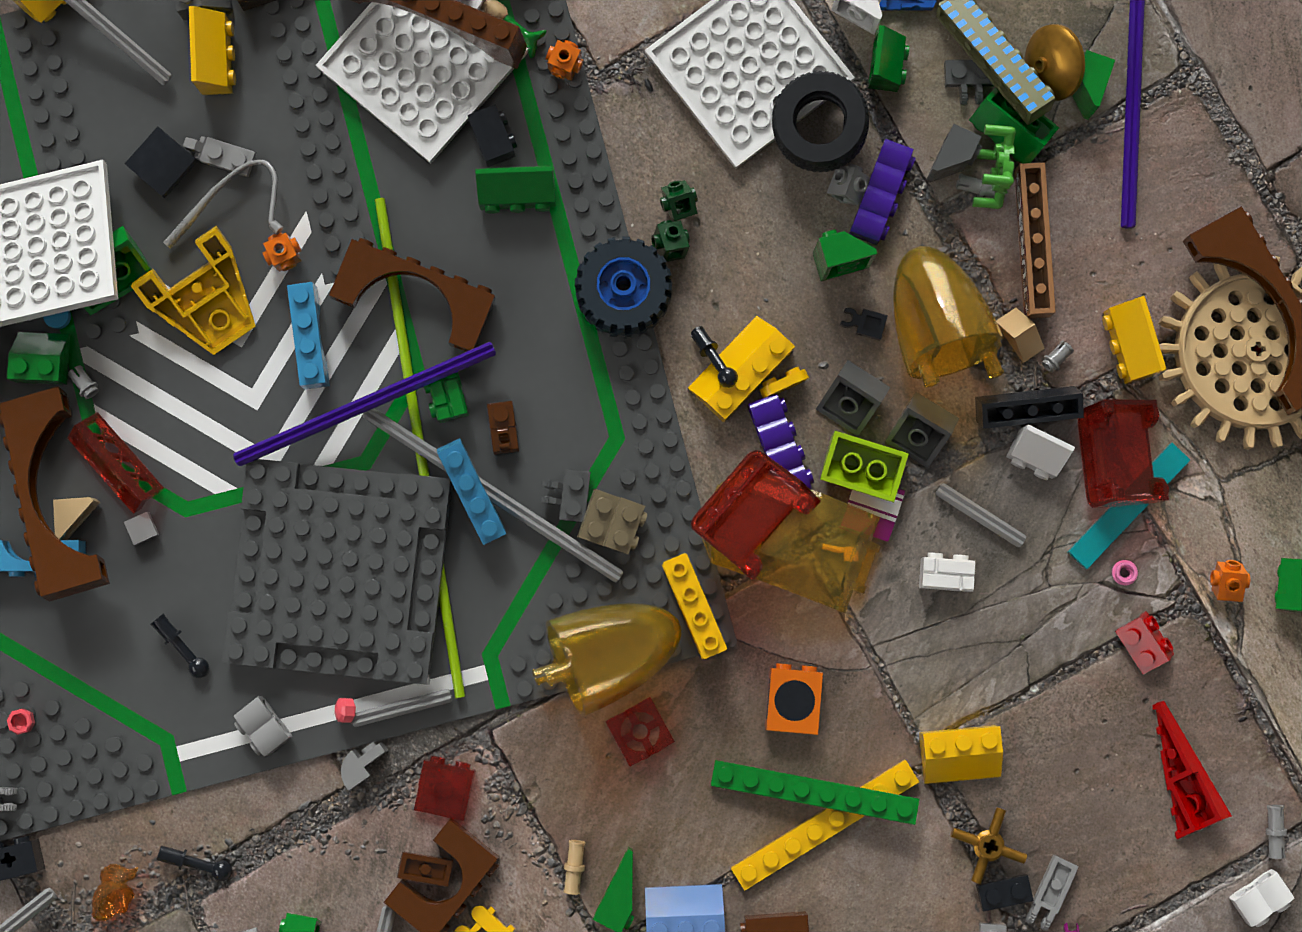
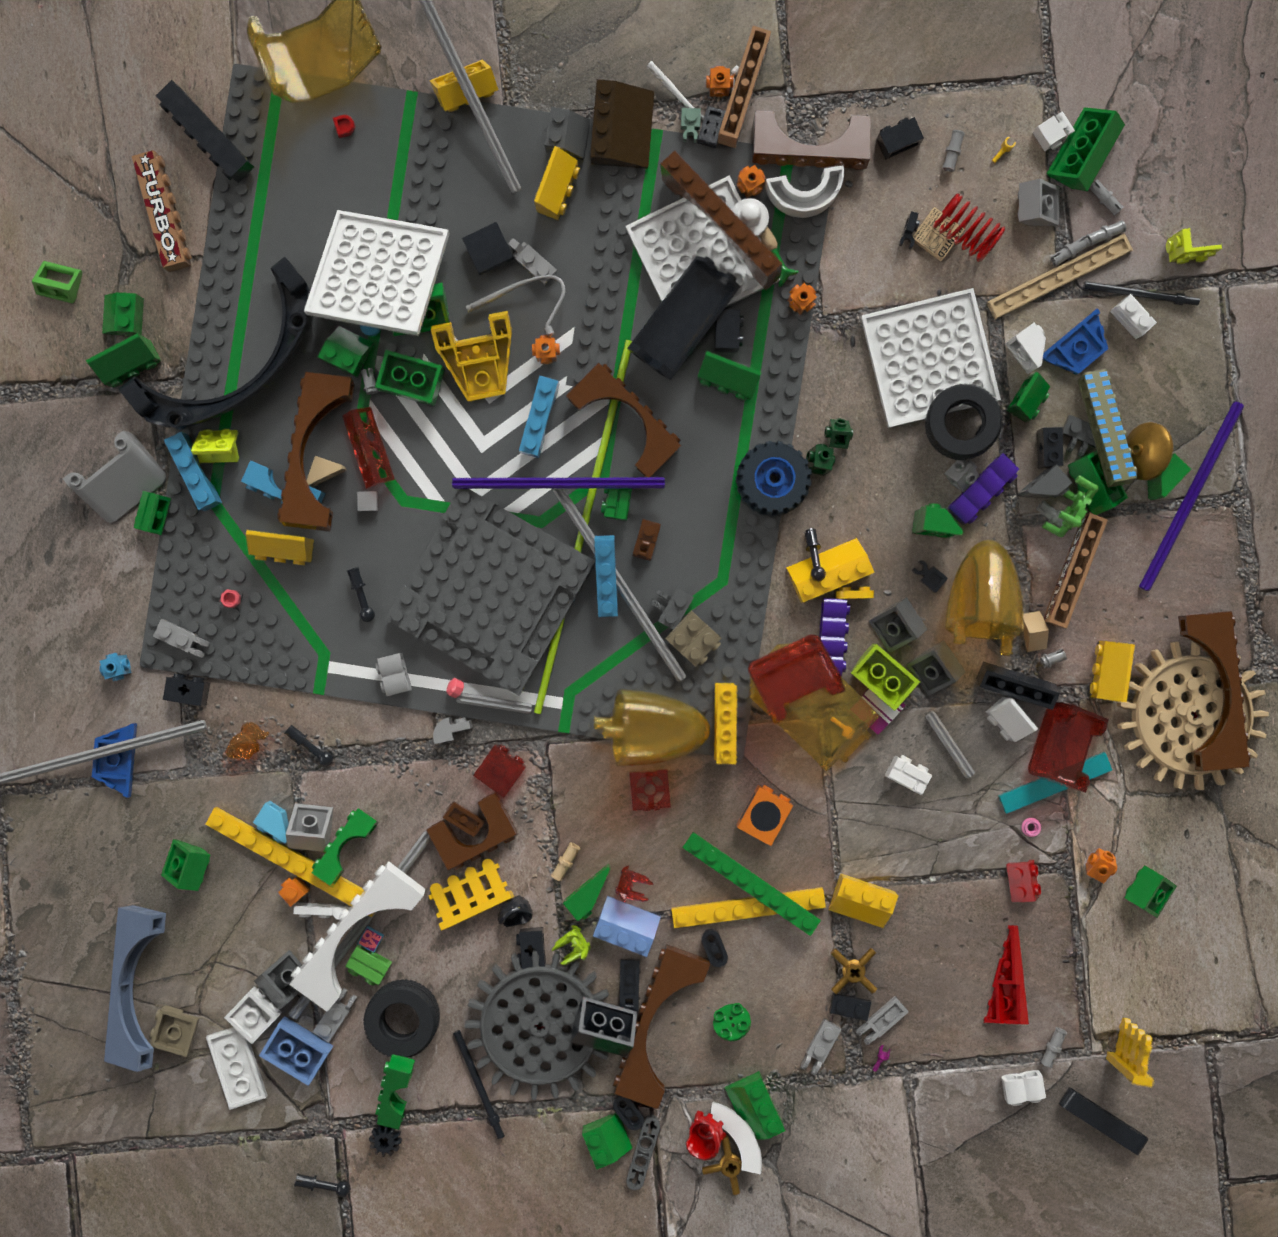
camera: 25 degrees right, 5 degrees up
(55, 630) = (279, 547): none -> yellow slope
(130, 356) = (410, 378): none -> green brick
(431, 141) = (684, 316): none -> black cylinder
(660, 869) = (624, 888): none -> clear red piece
(804, 893) = (714, 947): none -> black plate
(938, 108) = (1050, 447): none -> black brick

